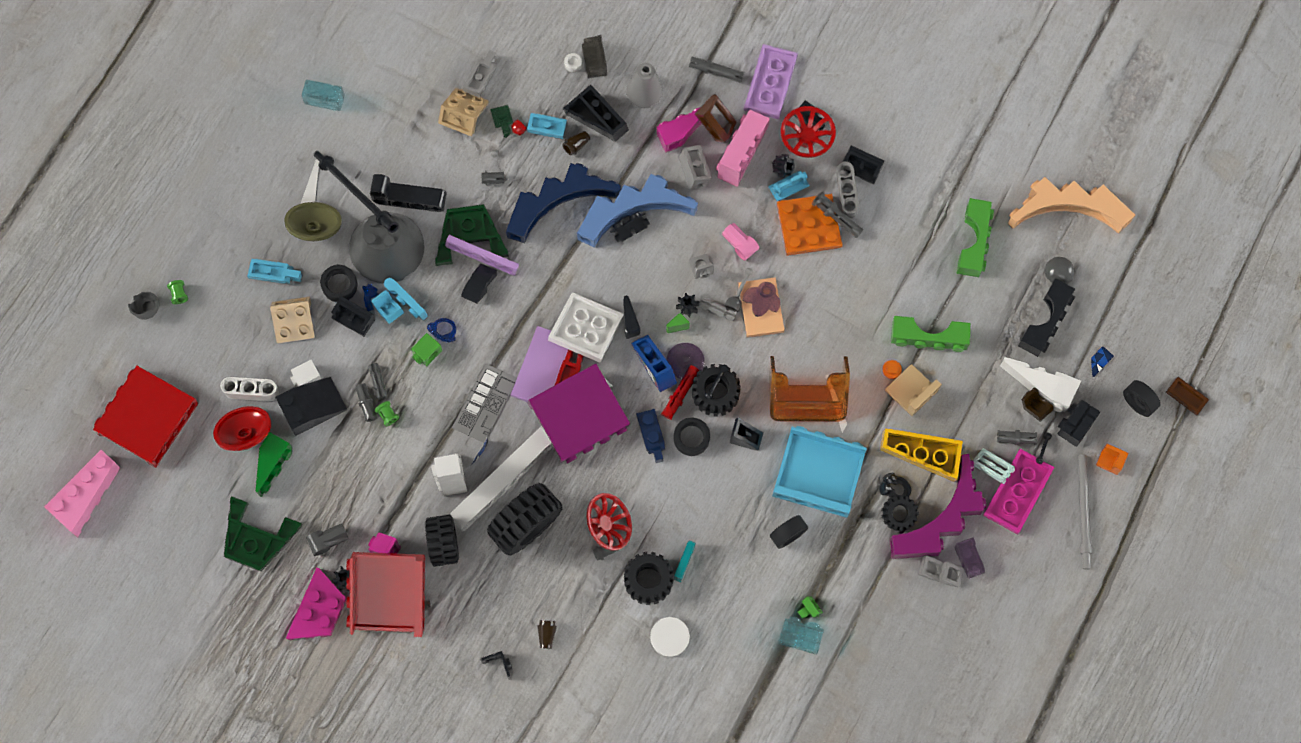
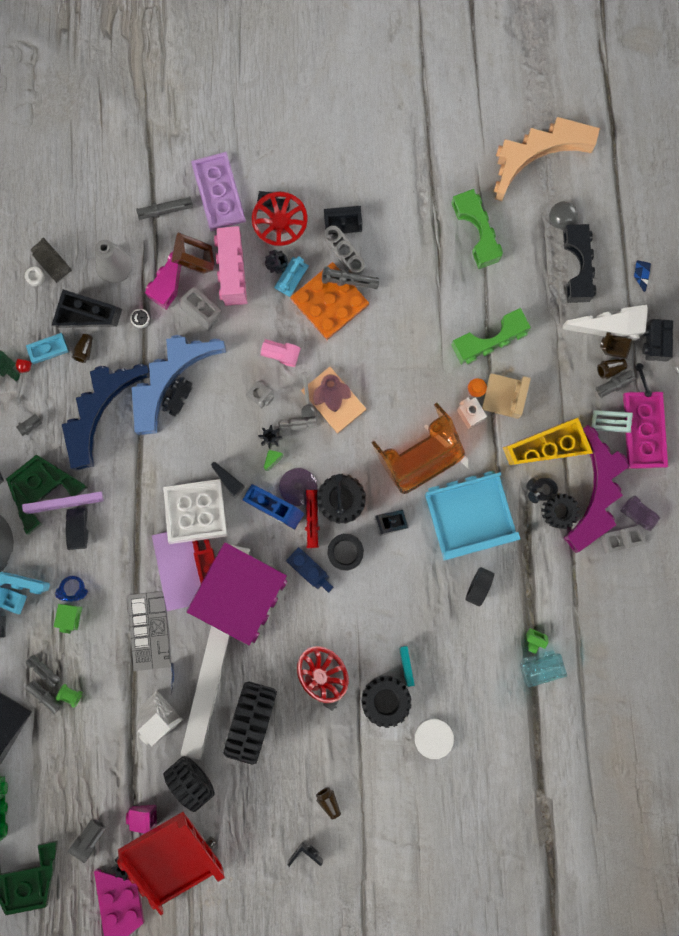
camera: 30 degrees left, 10 degrees up
(638, 146) = (140, 318): none -> tile
(873, 386) = (471, 412): none -> white brick
(1020, 421) = (609, 368): none -> dark brown cone

